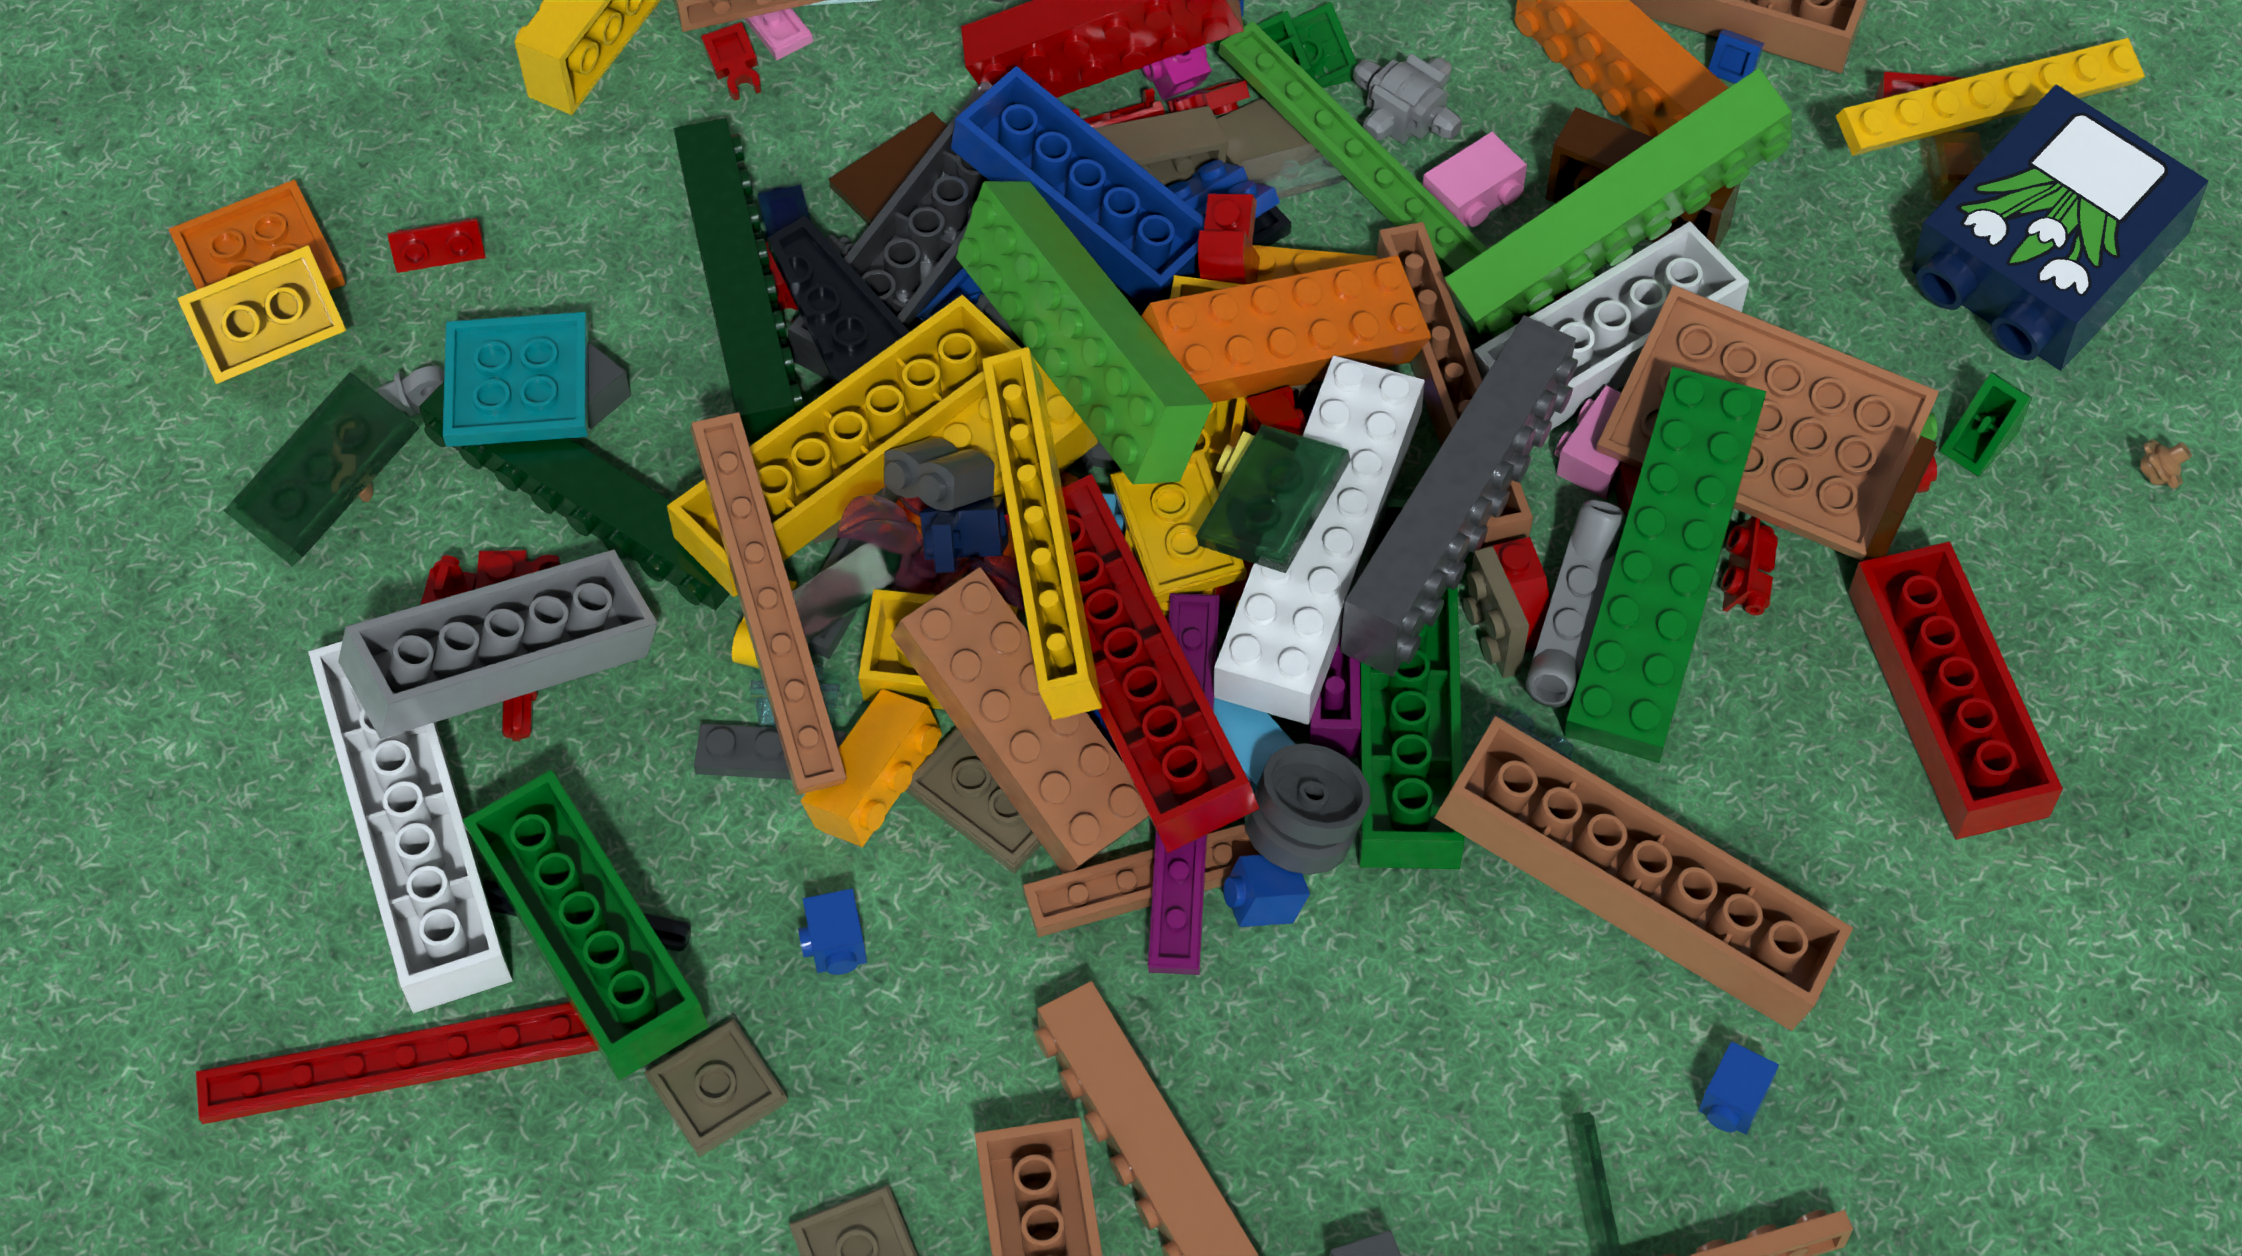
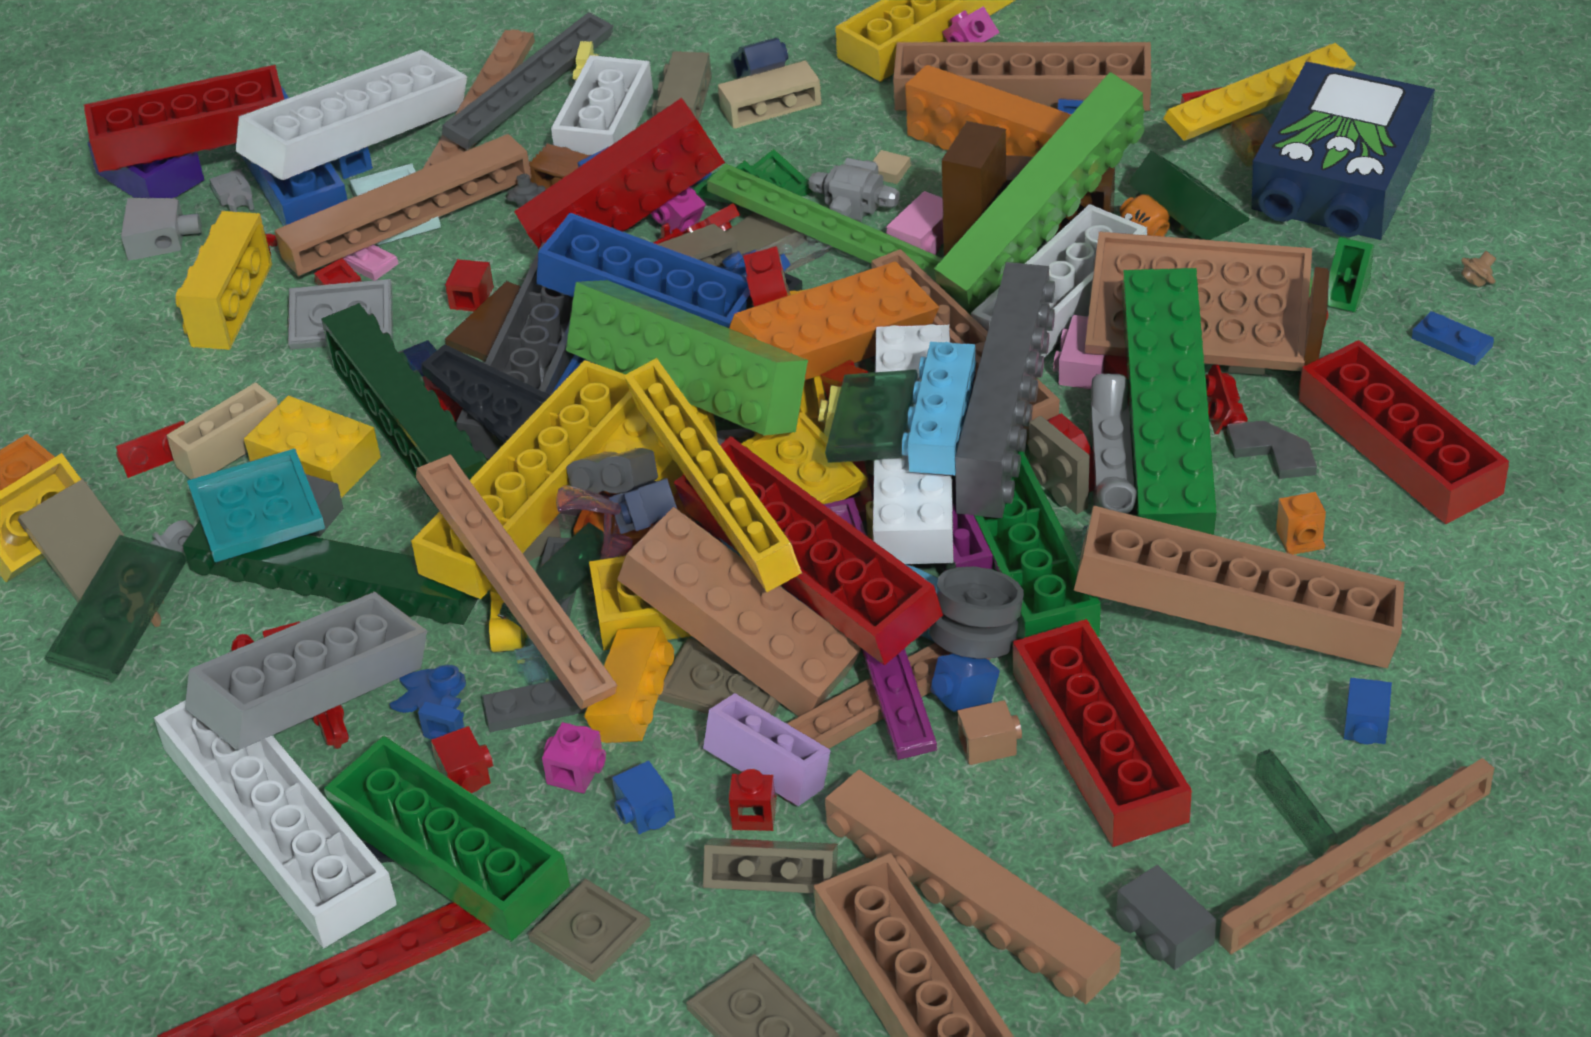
camera: 15 degrees left, 15 degrees down
(298, 355) = (72, 534): none -> dark tan tile
(521, 250) = (219, 433): none -> tan brick
(628, 302) = (325, 441): none -> yellow brick
(643, 695) = (429, 686): none -> blue plate
(644, 747) = (442, 718): none -> blue tile
(645, 813) = (463, 759): none -> red brick
(705, 90) = (312, 303): none -> light grey tile
(771, 850) = (573, 757): none -> dark pink brick
(883, 107) = (469, 284): none -> red brick
(943, 1077) = (768, 864): none -> dark tan brick
(958, 971) = (752, 791): none -> red brick
(996, 914) = (759, 741): none -> lavender brick
(1270, 970) = (988, 732): none -> nougat brick
(1357, 516) = (940, 407): none -> medium azure brick
(1399, 1018) = (1101, 733): none -> red brick
(1472, 68) = (892, 166): none -> tan tile
(1539, 159) = (971, 178): none -> reddish brown brick
(1761, 253) = (1148, 213): none -> orange head
(1769, 788) = (1301, 523): none -> orange brick
(1778, 638) = (1289, 452): none -> flat silver tile
(1828, 236) = (1186, 198): none -> dark green slope
(2086, 557) = (1453, 338): none -> blue plate

